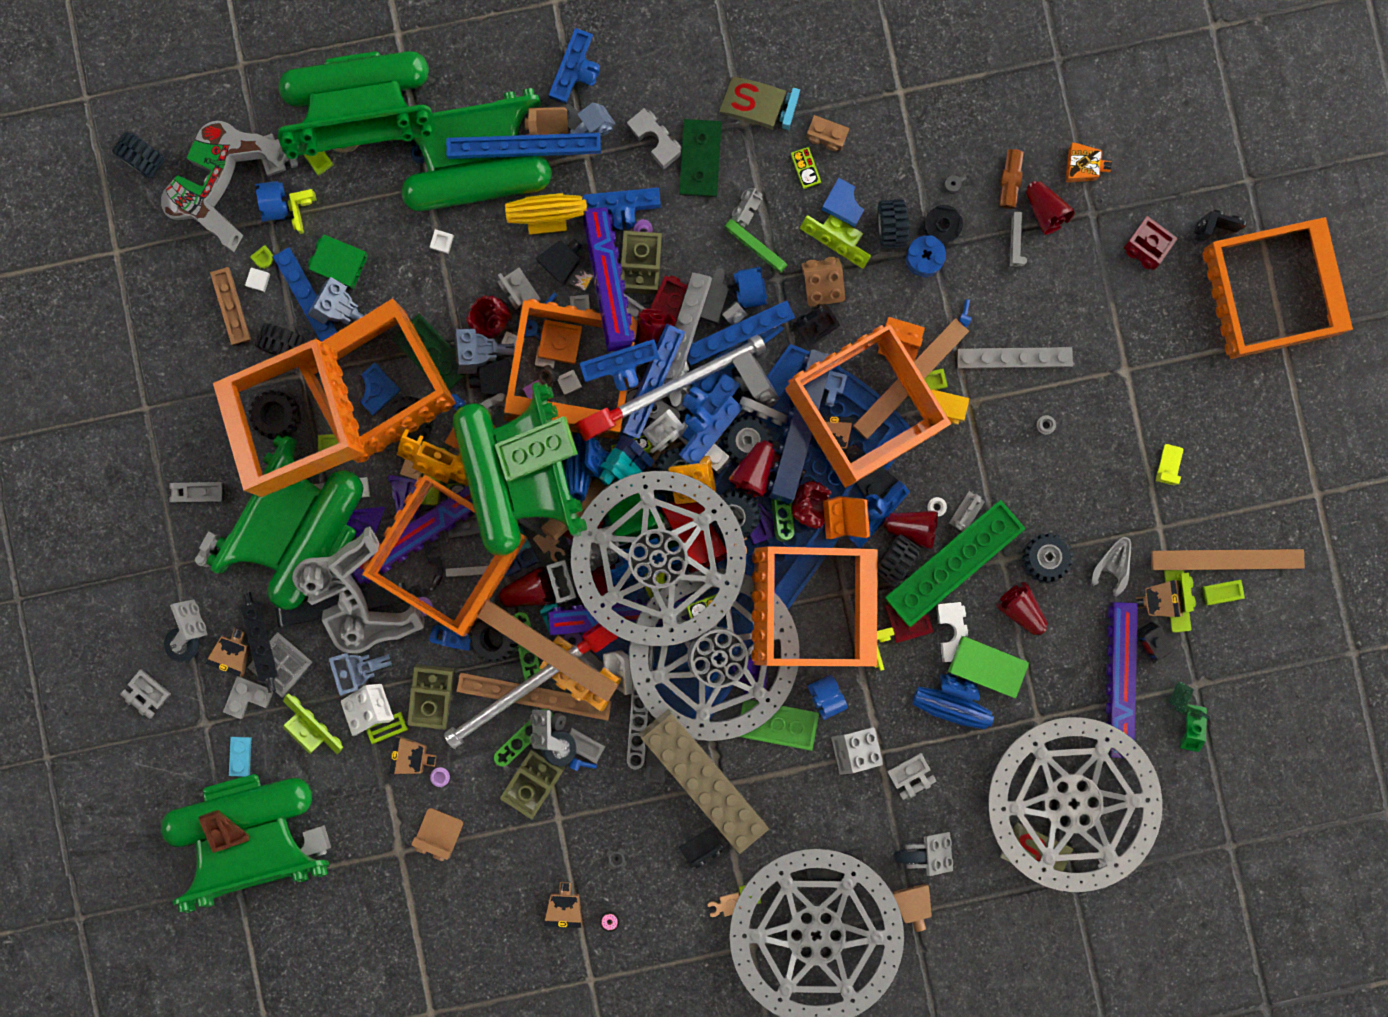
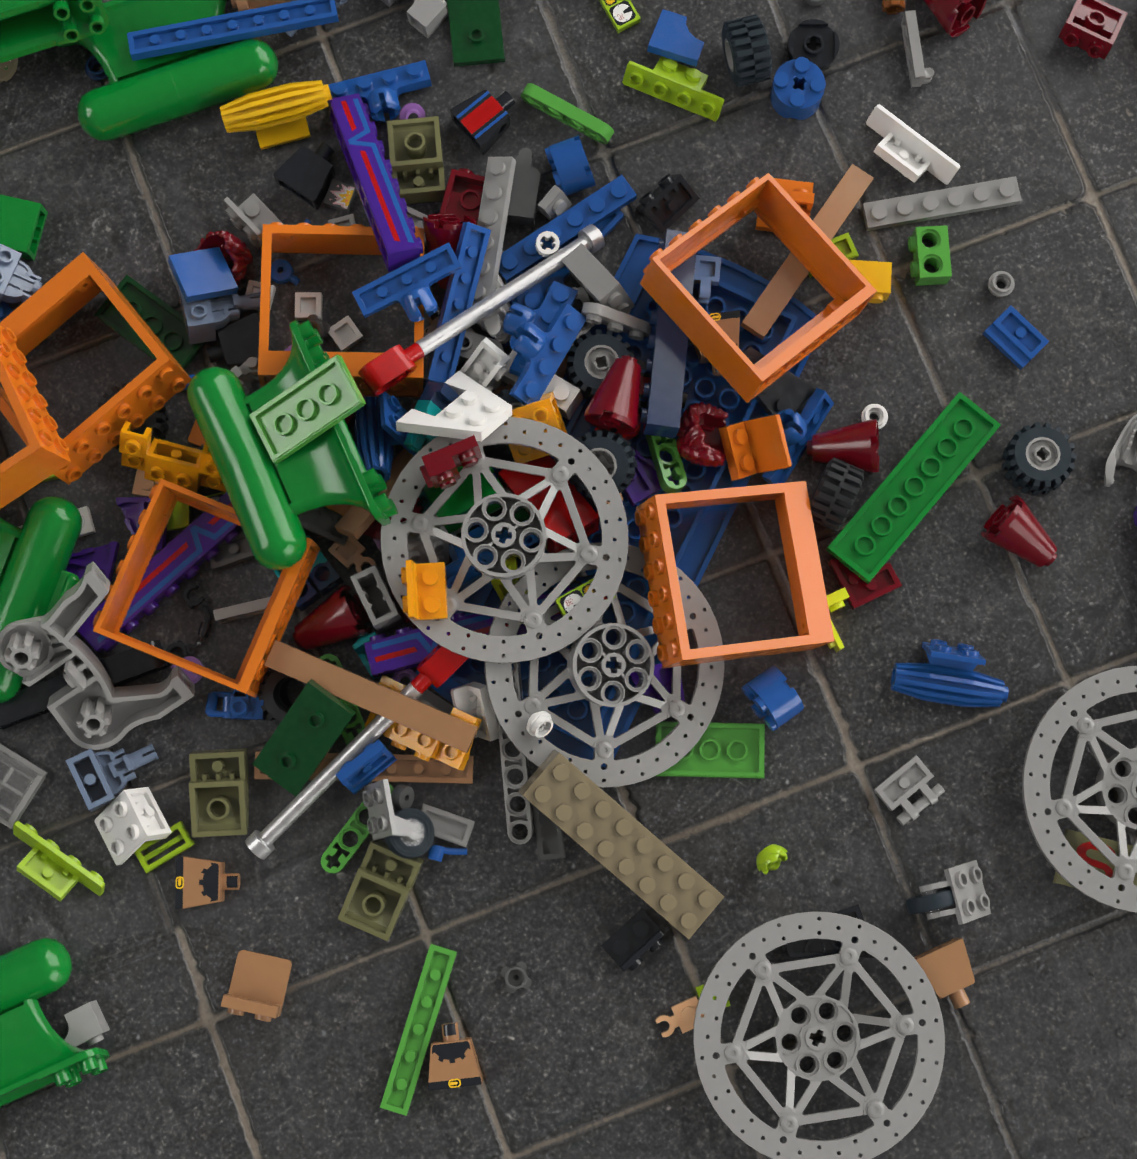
camera: 10 degrees left, 5 degrees down
(378, 390) = (85, 385): blue tile -> none
(440, 777) = (249, 903): lavender plate -> none
(441, 241) = (144, 177): white tile -> none
(474, 326) = (202, 274): none -> blue tile
(496, 671) = (303, 738): none -> dark green plate
(531, 700) = (366, 766): none -> blue plate
(543, 883) = (418, 1029): none -> bright green plate
(559, 342) = (323, 281): orange plate -> none
(597, 587) = (425, 590): none -> light orange bracket
(609, 921) = (521, 1069): tile -> none
(623, 504) = (442, 465): none -> dark red plate
(646, 469) = (472, 413): none -> white wing
(661, 690) = (539, 724): none -> white plate
(694, 239) = (483, 118): none -> torso
(724, 351) = (547, 235): none -> white bush
(749, 199) = (549, 56): light grey hinge -> none
(806, 807) = (770, 858): none -> lime plate
(824, 281) = (667, 145): medium nougat bracket -> none
(857, 751) = (826, 768): light grey bracket -> none
(951, 614) = (924, 558): white arch -> none
(964, 319) = (864, 163): blue hand -> none
(967, 511) = (916, 416): light grey hinge -> none
(988, 667) = (987, 619): bright green tile -> none
(997, 315) = (909, 150): none -> white bracket
(1003, 397) = (936, 256): none -> bright green brick
(1048, 466) = (1015, 337): none -> blue plate

